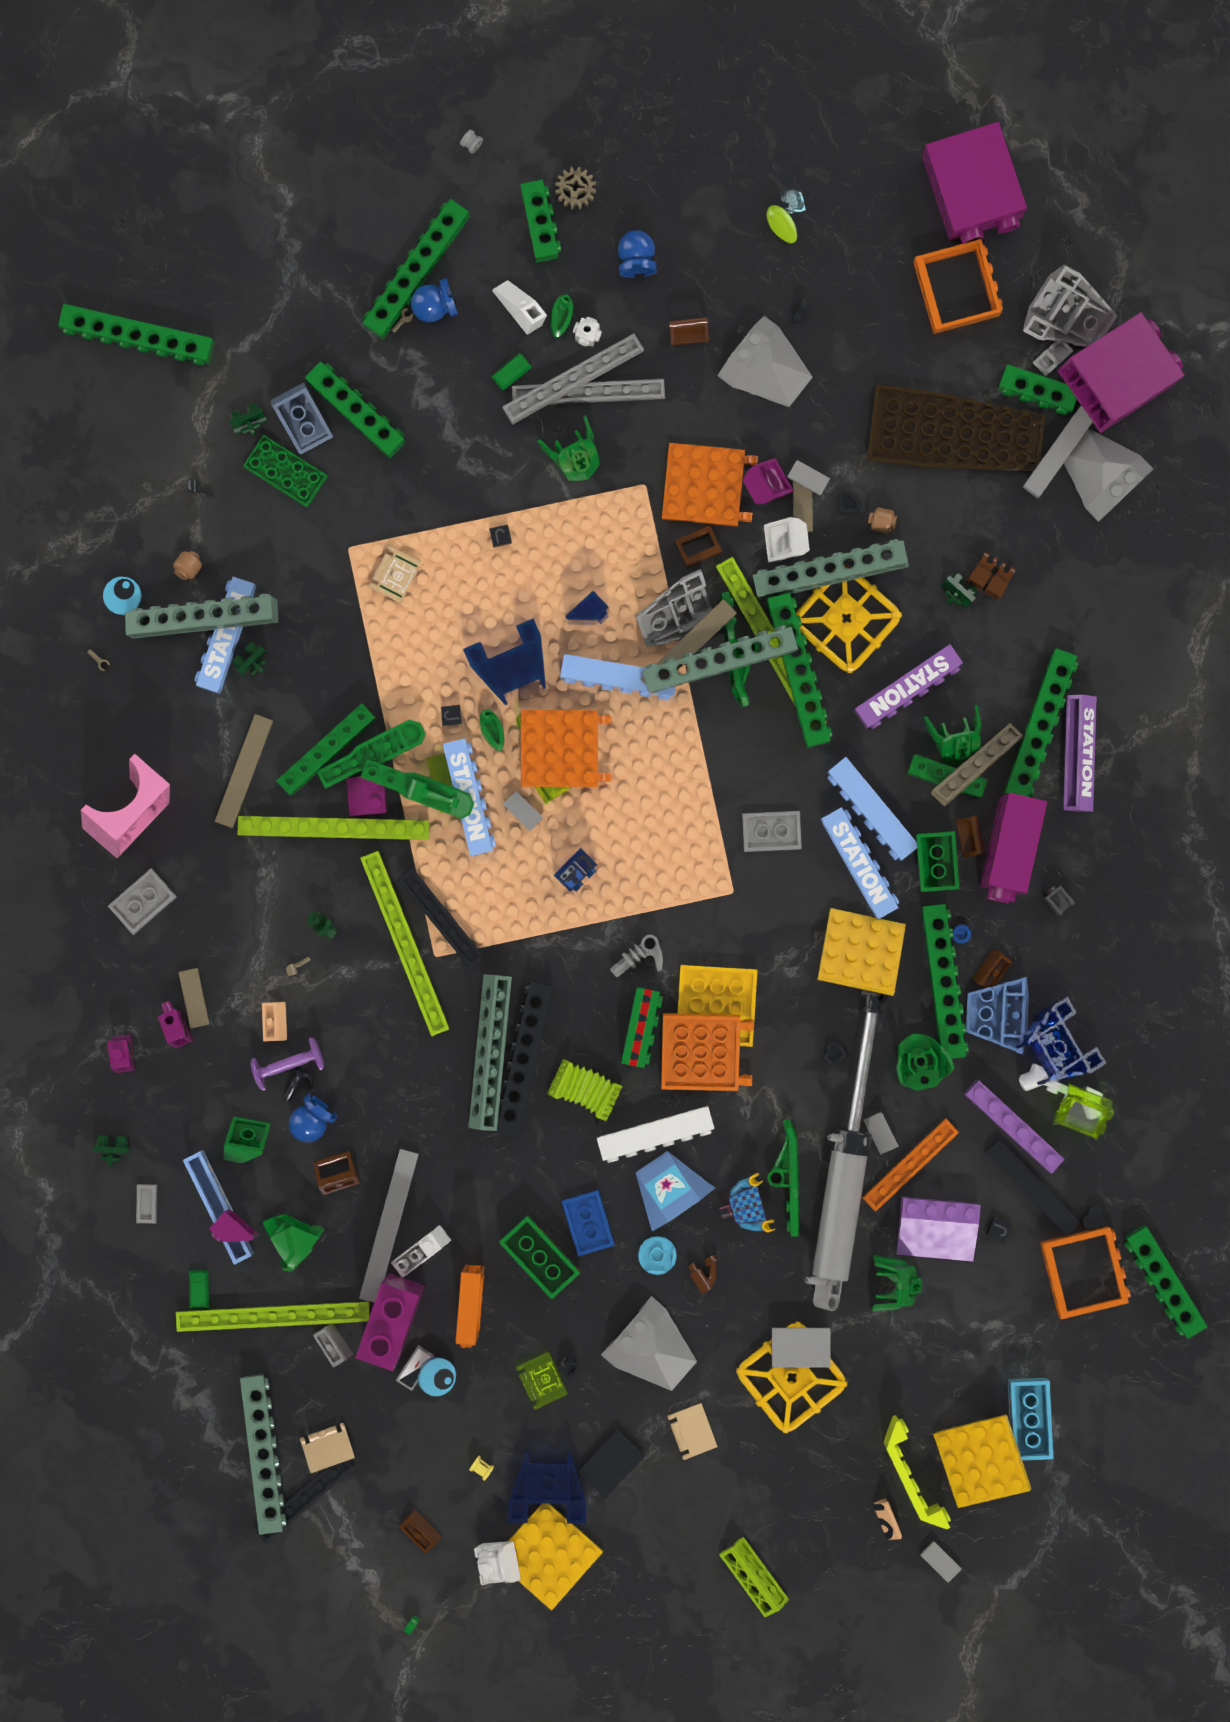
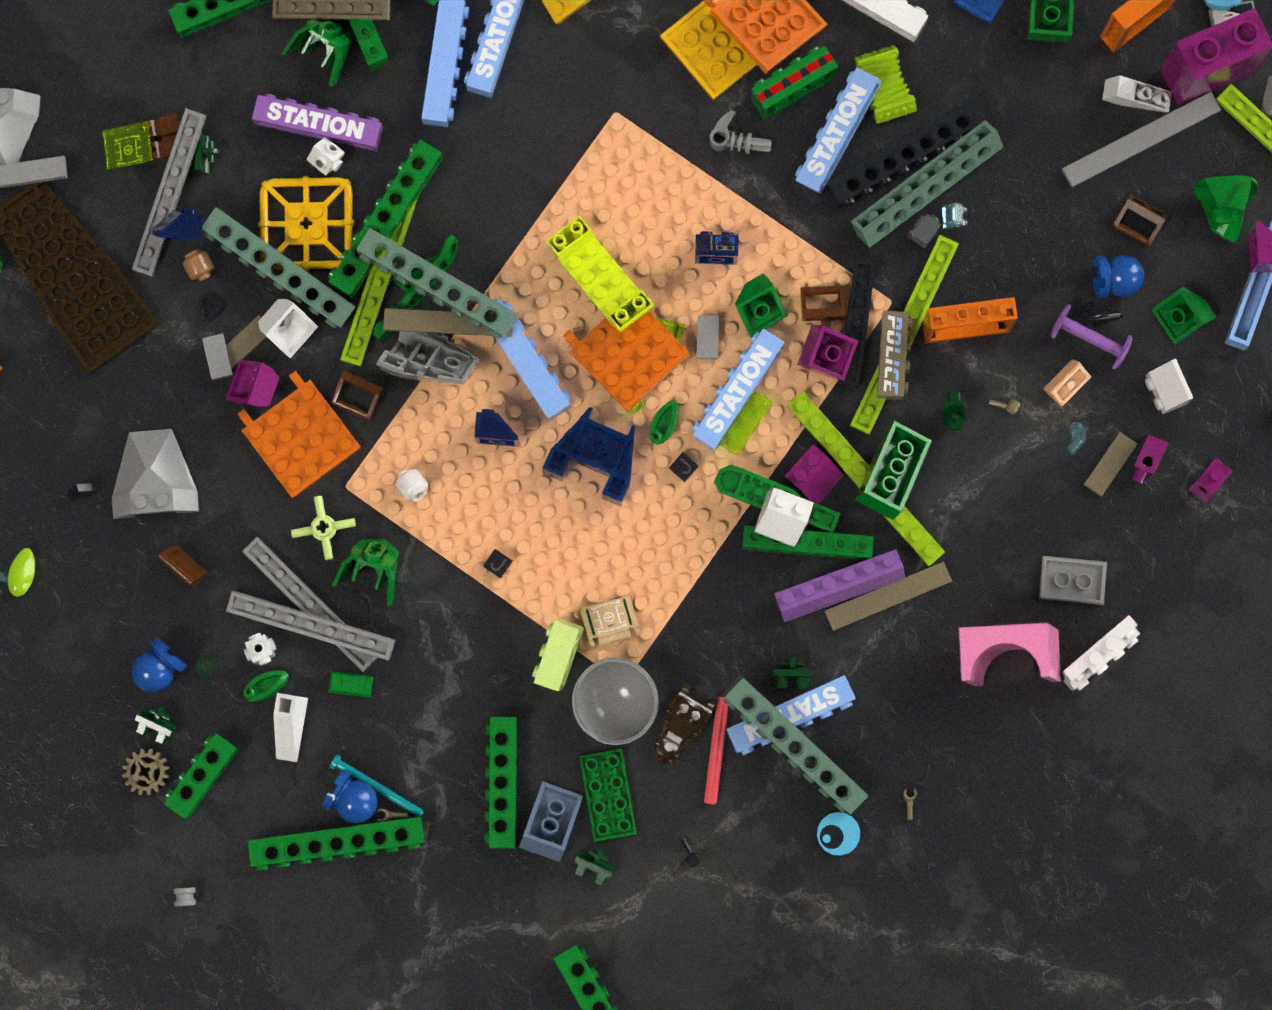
camera: 130 degrees left, 5 degrees down
(74, 871) = (1099, 654): none -> white bracket
(187, 565) = (762, 801): medium nougat head -> none
(206, 1082) = (1168, 387): none -> white slope
(231, 994) = (1078, 436): none -> clear light blue arm
(246, 564) = (716, 751): none -> coral axle
(278, 744) = (840, 585): none -> medium lavender brick
(285, 561) = (682, 723): none -> dark brown animal
(319, 848) = (893, 470): none -> green brick
(337, 526) = (615, 701): none -> light grey piece
(353, 744) = (783, 516): none -> white slope
(369, 990) = (969, 320): none -> orange window
(396, 920) = (893, 355): none -> dark tan brick
(403, 518) = (557, 654): none -> yellowish green brick
(421, 789) = (768, 430): green piece -> none
(429, 327) = (338, 763): none -> teal bar
(438, 878) = (827, 352): none -> magenta slope
(453, 1050) = (953, 215): none -> clear light blue tile
(461, 1023) = (925, 230): none -> dark grey window
(468, 898) = (822, 314): none -> reddish brown tile
(512, 863) = (759, 305): none -> green slope
(580, 1026) = (838, 130): none -> light blue brick
(602, 223) = (156, 720): none -> dark green hips
(603, 526) = (412, 485): none -> white head
(609, 287) = (205, 666): none -> clear green plate
(627, 775) = (599, 274): none -> neon yellow slope
(636, 443) = (317, 523): none -> yellowish green bar
(771, 831) = (537, 126): light grey tile -> none
(879, 671) = (326, 156): none -> white brick
(918, 528) = (180, 225): none -> clear blue slope
(950, 545) = (169, 189): none -> light grey tile
(1009, 547) = (127, 145): none -> clear neon green piece

